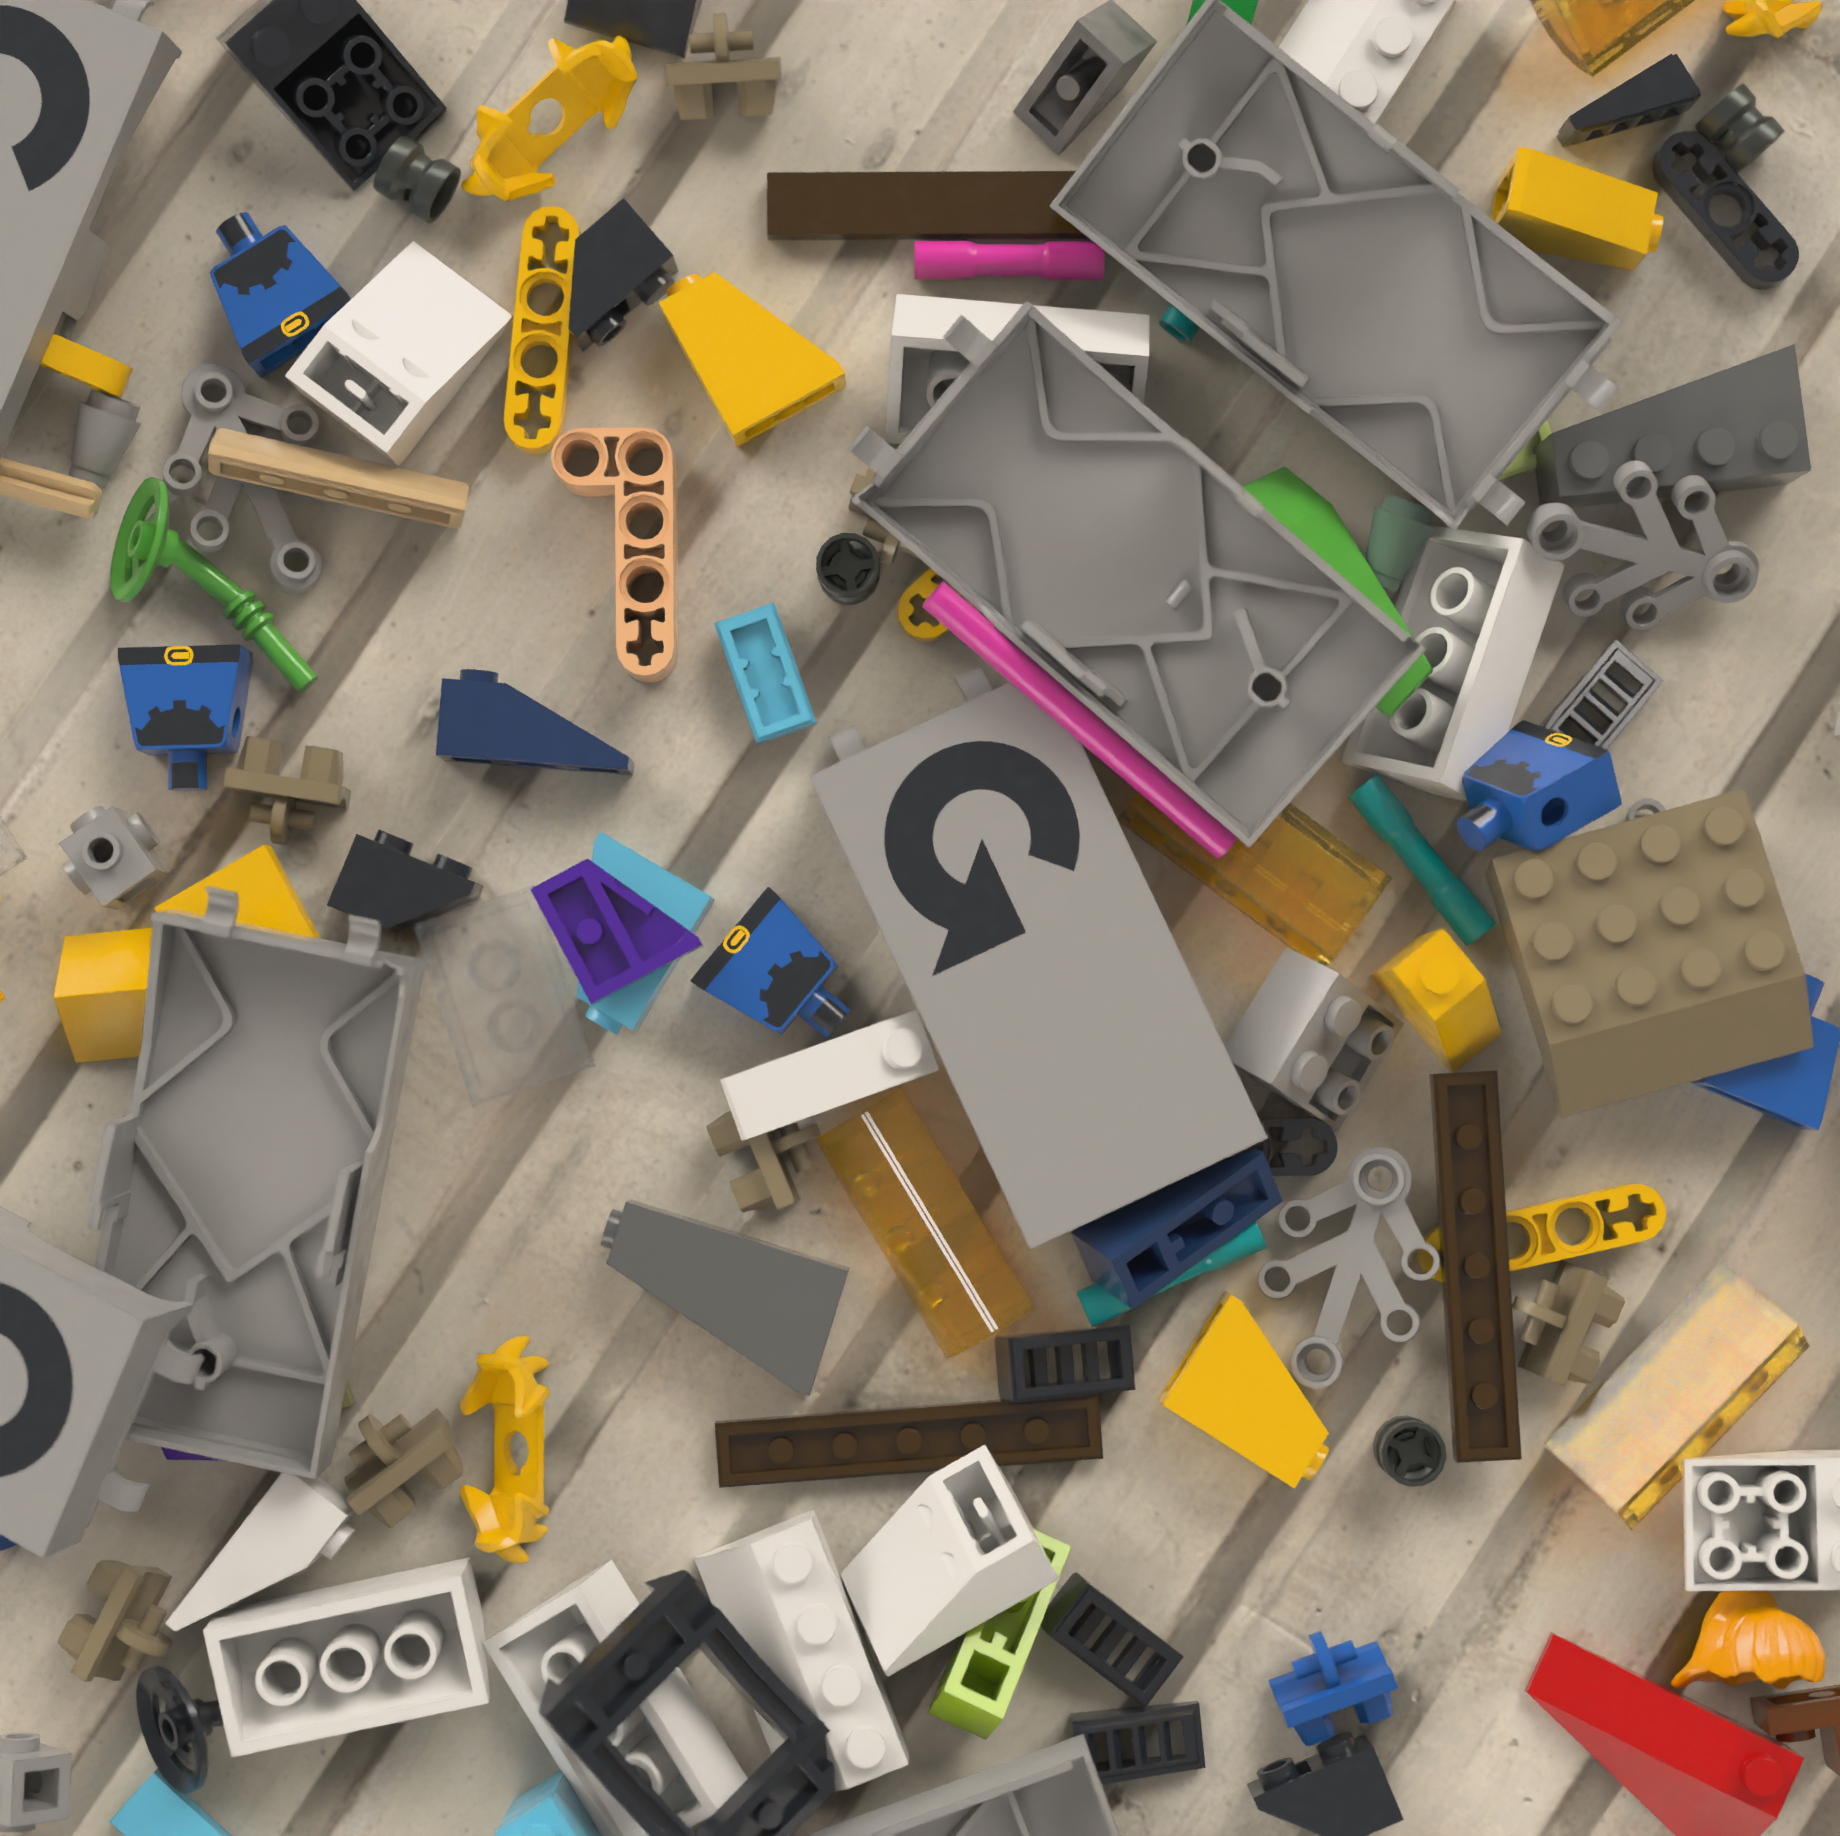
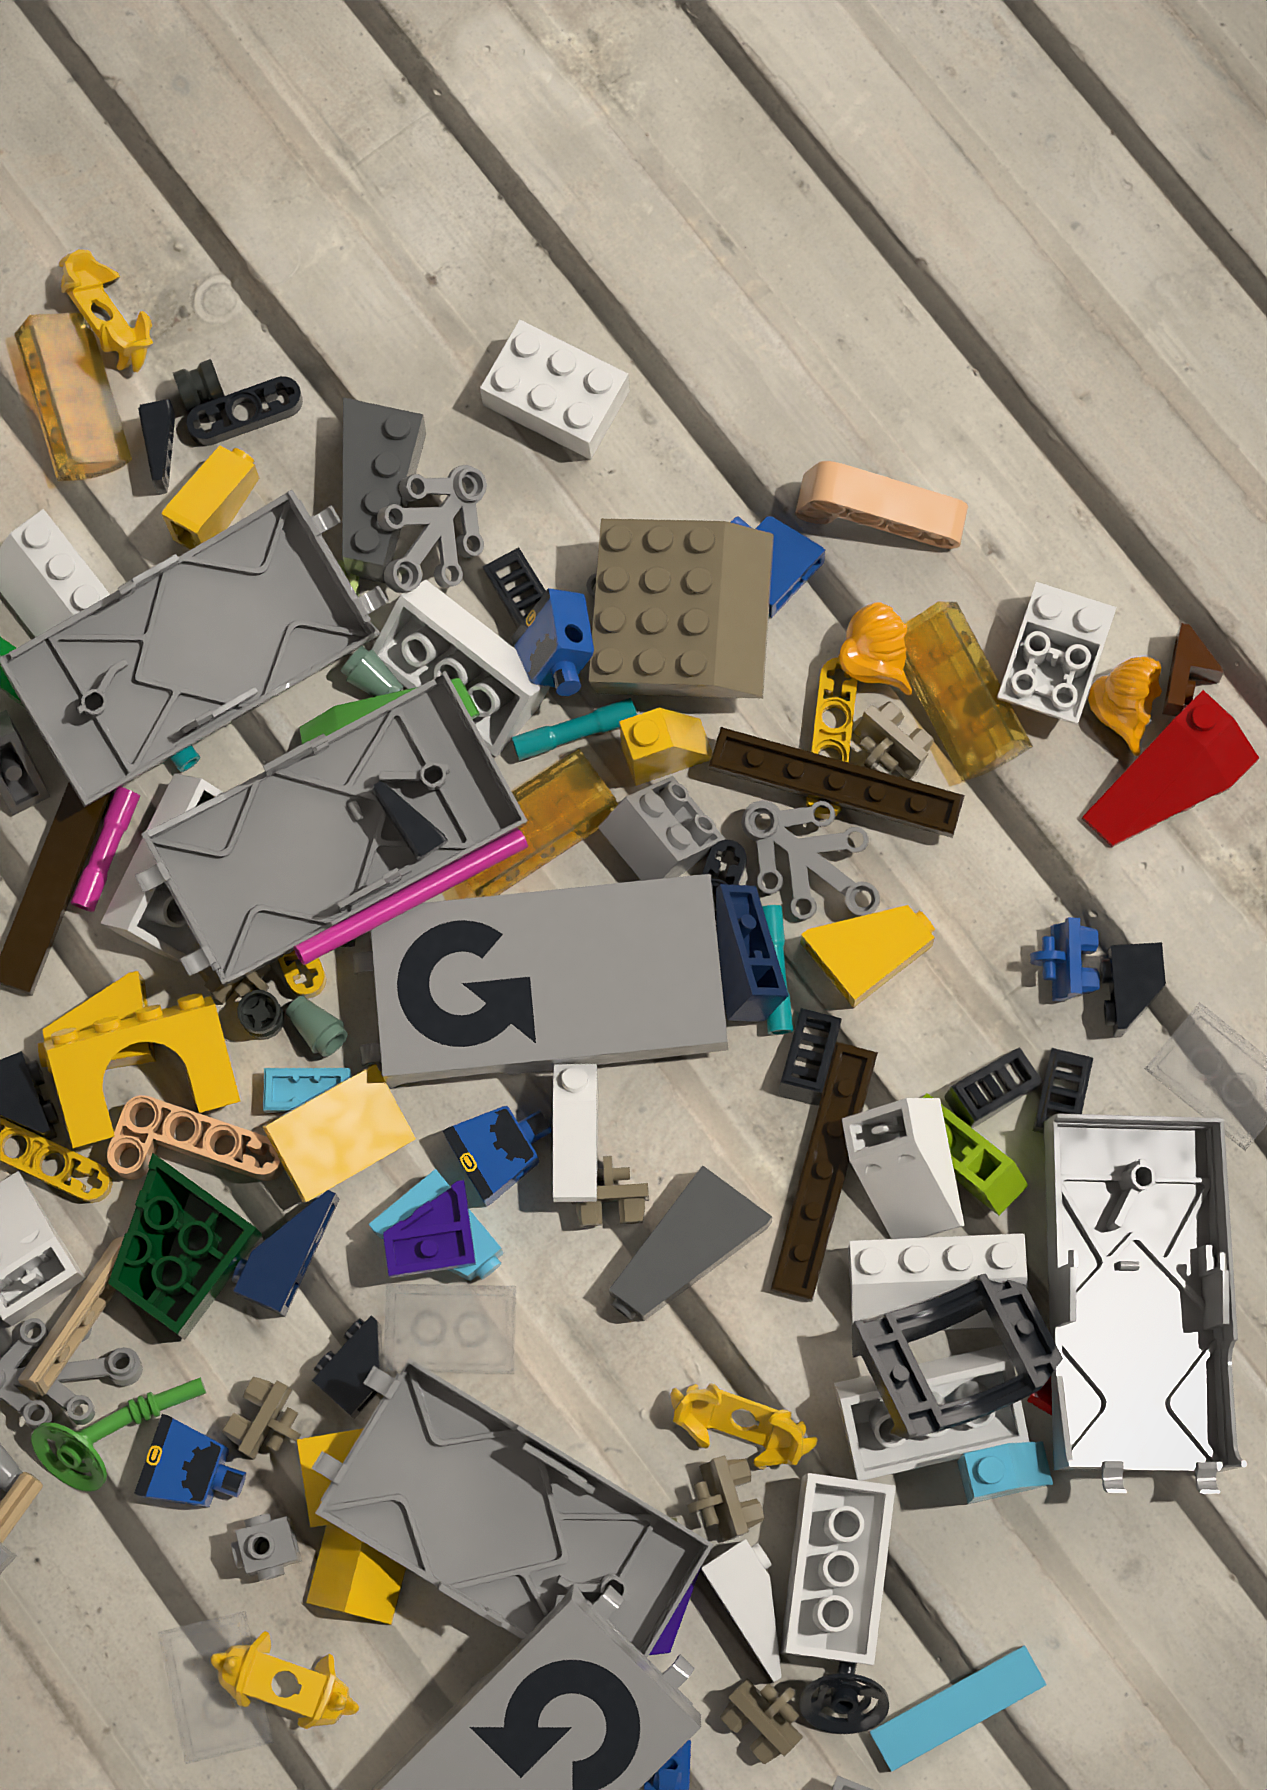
camera: 65 degrees left, 10 degrees down
(475, 580) = (179, 1249): none -> dark green wedge
(716, 742) = (339, 1133): none -> yellow tile
(780, 470) = (82, 1057): none -> yellow arch
(860, 653) = (317, 1027): none -> sand green cone
(924, 1224) = (690, 1111): clear yellow brick -> none
(1178, 690) = (413, 827): none -> black slope
(1420, 1457) = (942, 856): pearl dark grey wheel -> none
(1697, 1254) = (876, 647): none -> light orange hair

